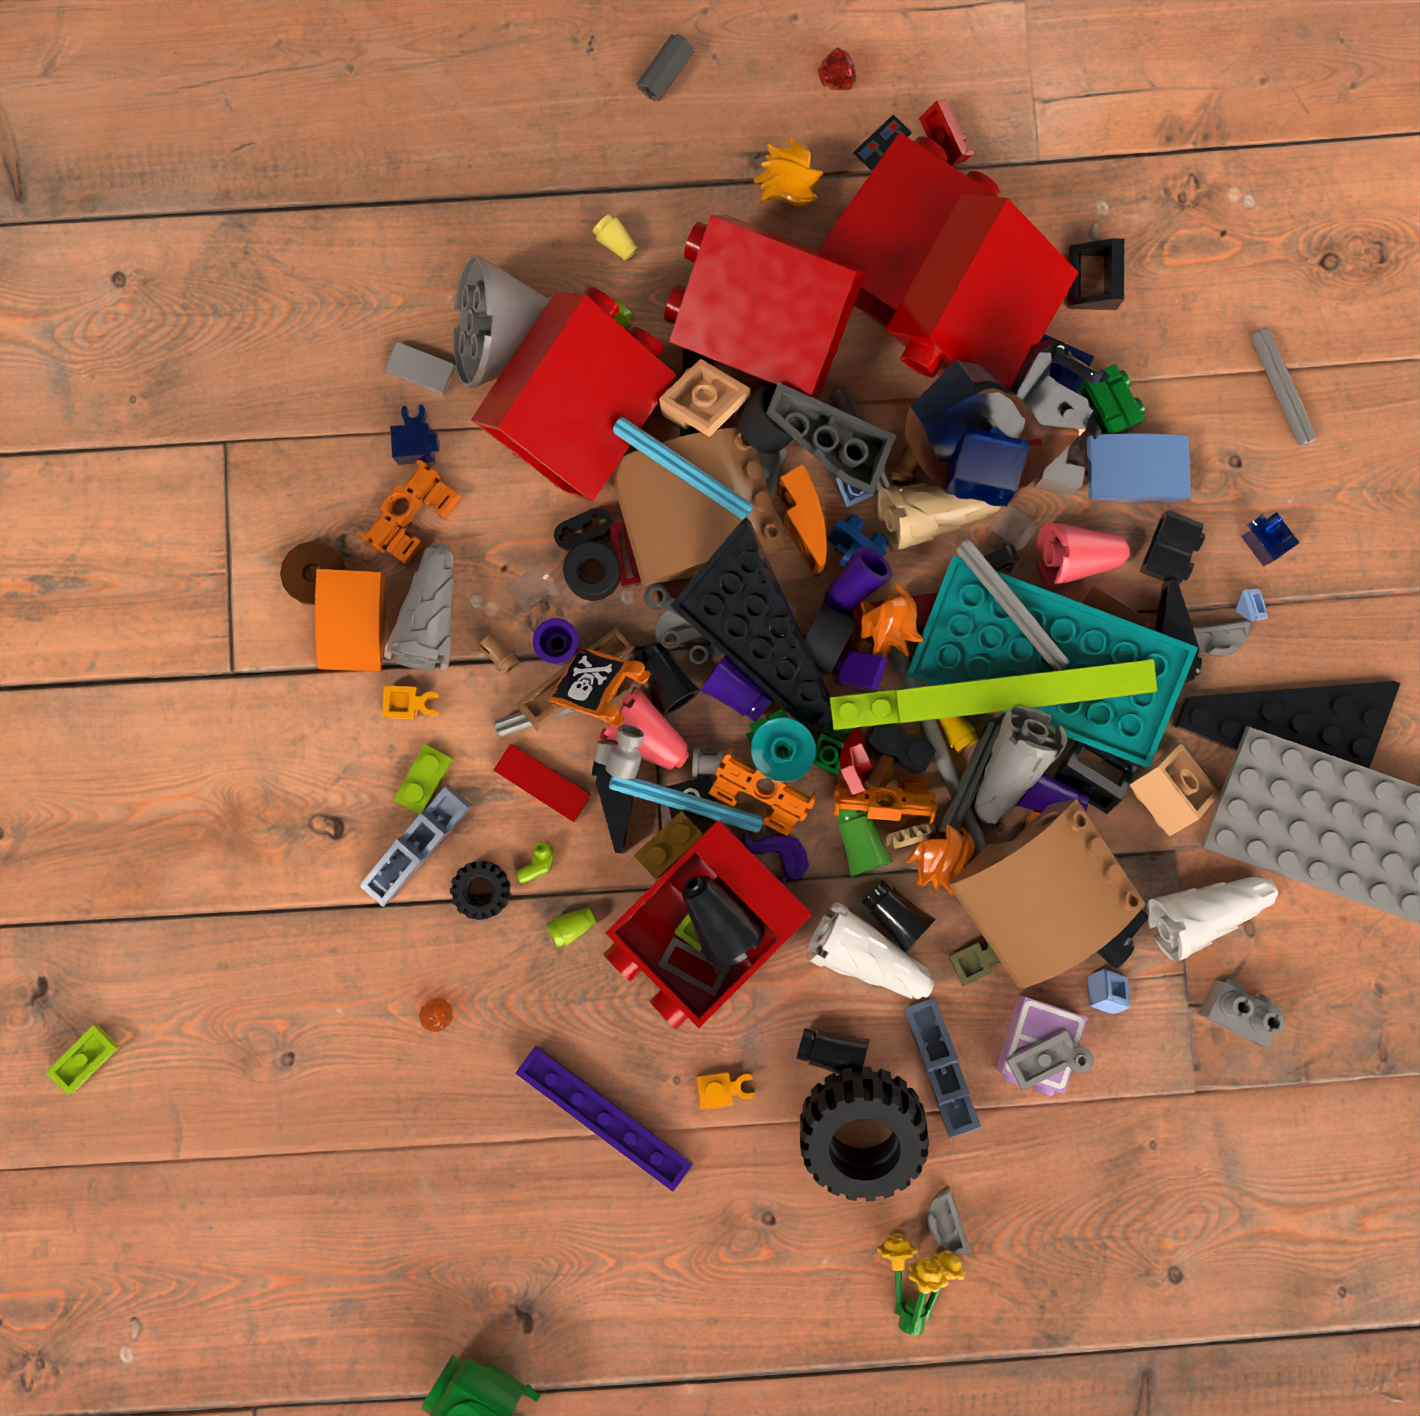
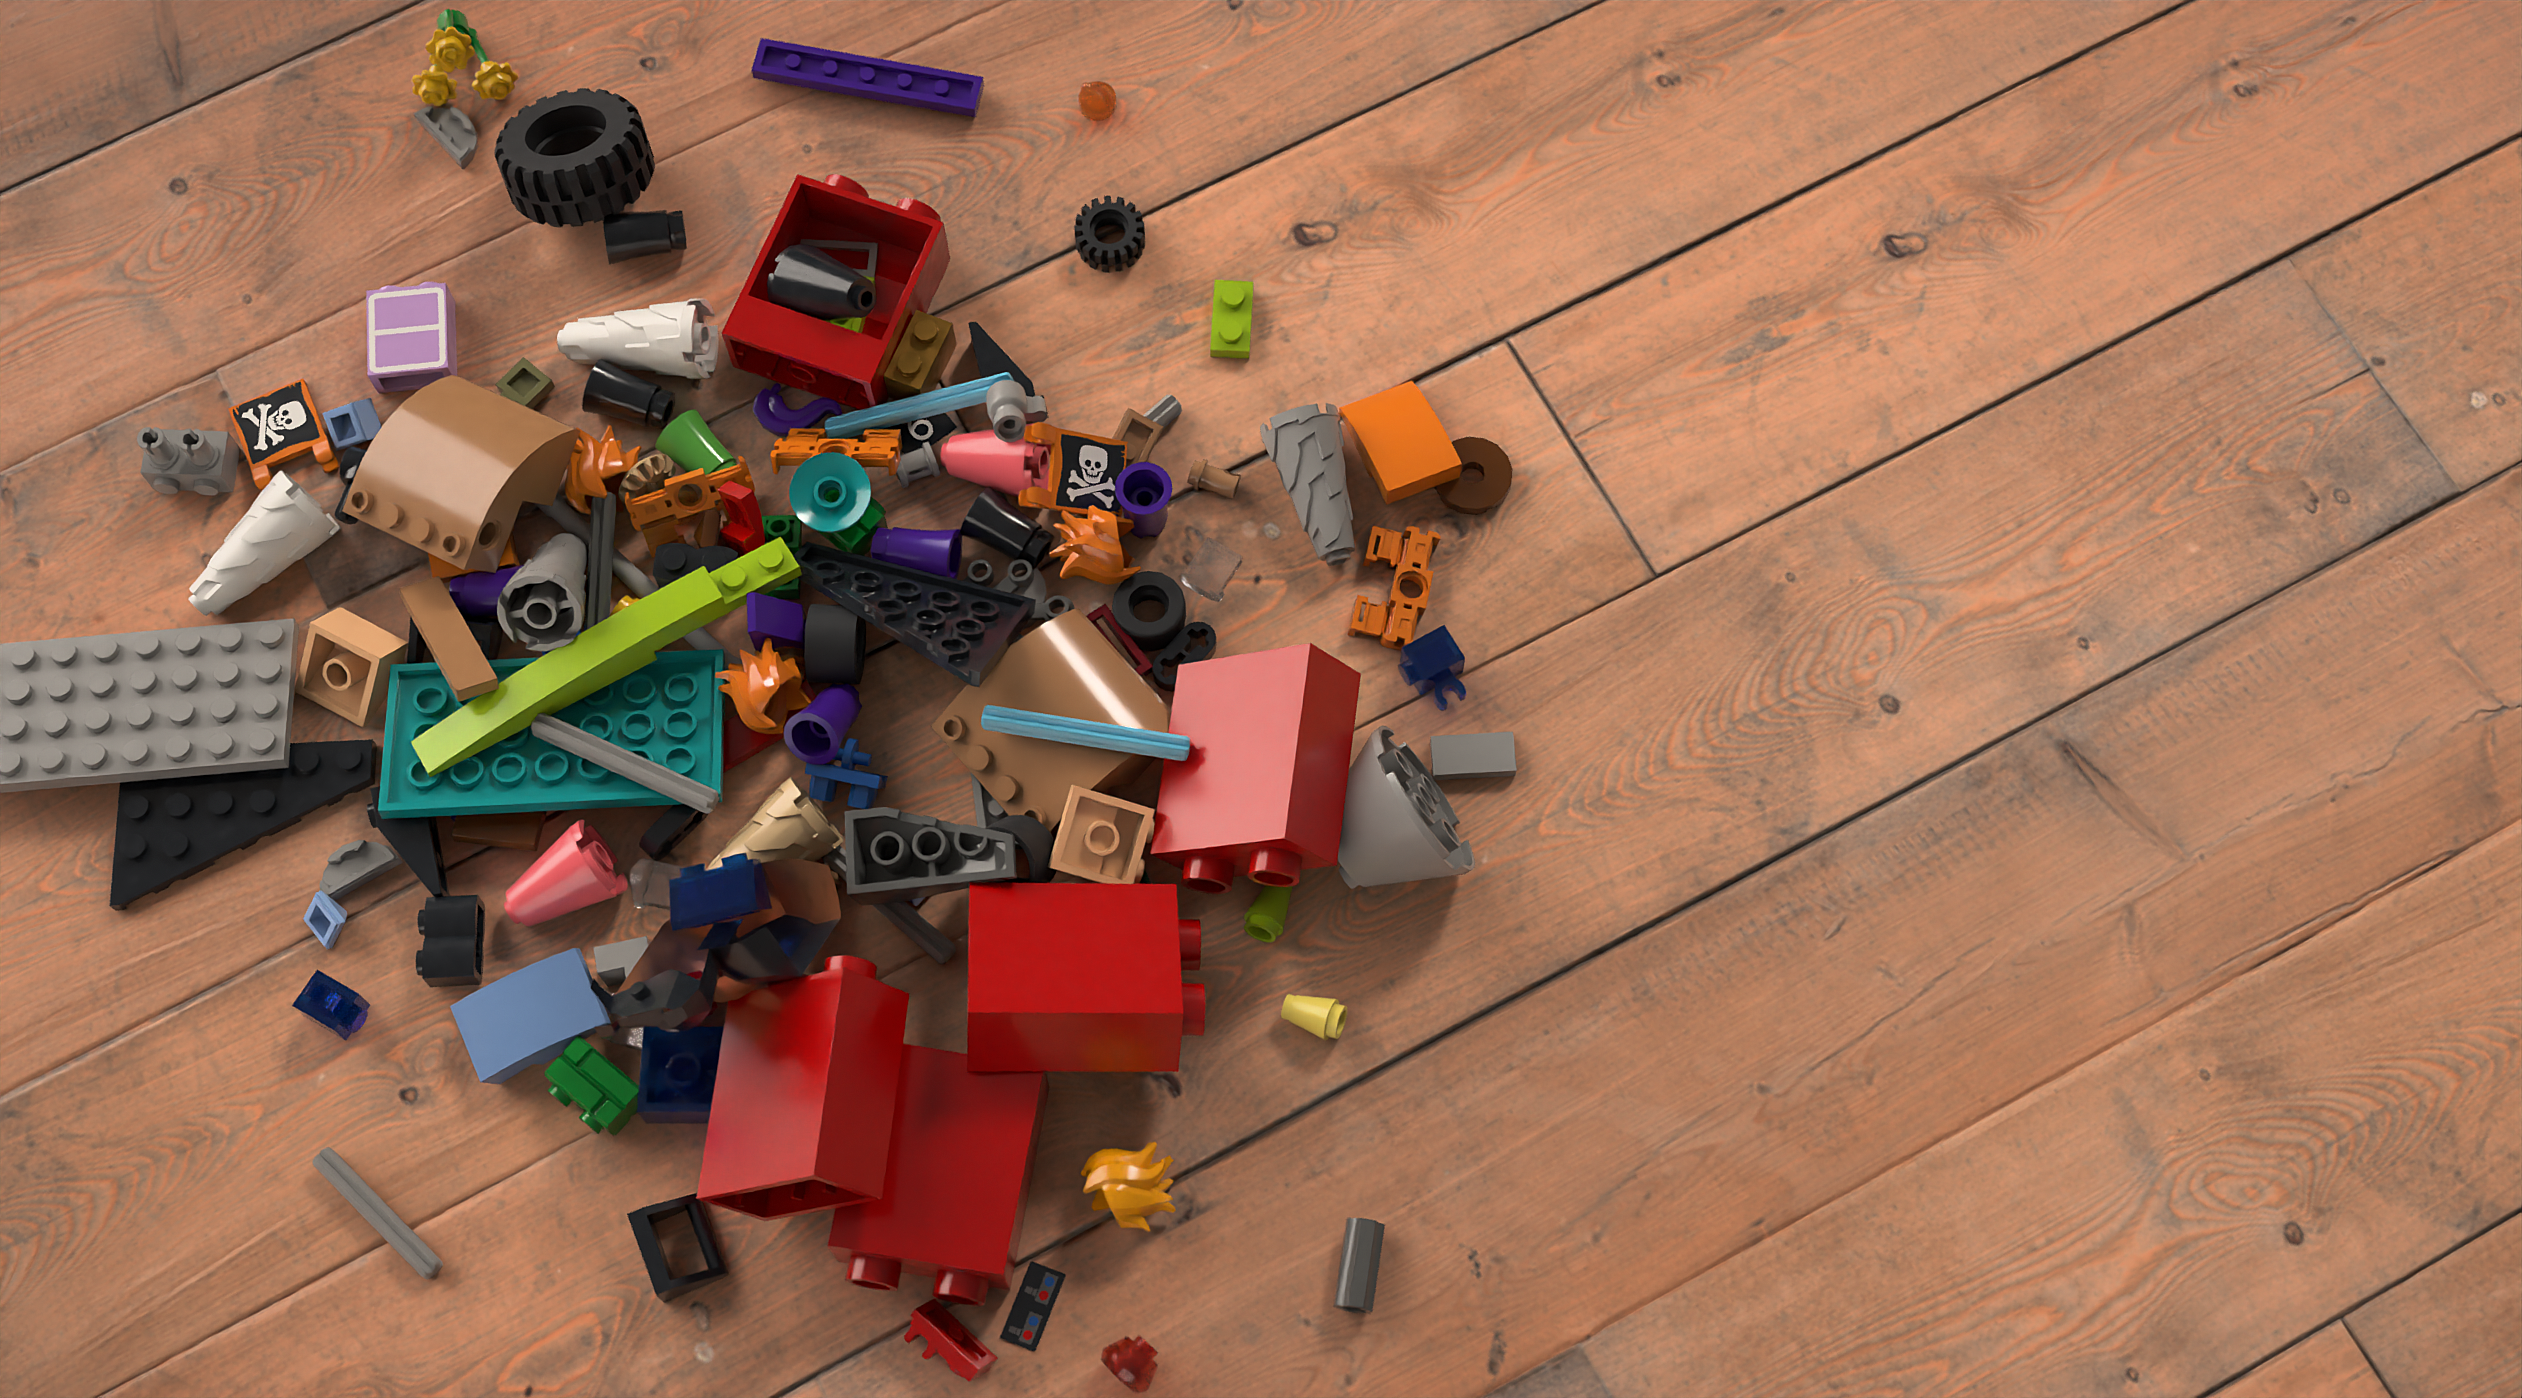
camera: 155 degrees right, 15 degrees down
(404, 702) = (1292, 381): light orange plate -> none
(415, 845) = (1204, 249): sand blue slope -> none
(539, 865) = (1057, 286): lime arm -> none
(542, 782) = (1096, 370): red tile -> none
(570, 926) = (993, 239): lime cone -> none
(611, 622) = (1095, 547): none -> orange hair
(717, 1089) = (754, 154): light orange plate -> none
(804, 517) = (921, 766): orange slope -> none
(942, 1068) = (515, 271): sand blue slope -> none
(1048, 1059) = (396, 310): light grey hinge -> none
(1103, 759) = (449, 638): none -> medium nougat tile
(1164, 1014) = (281, 428): none -> flag

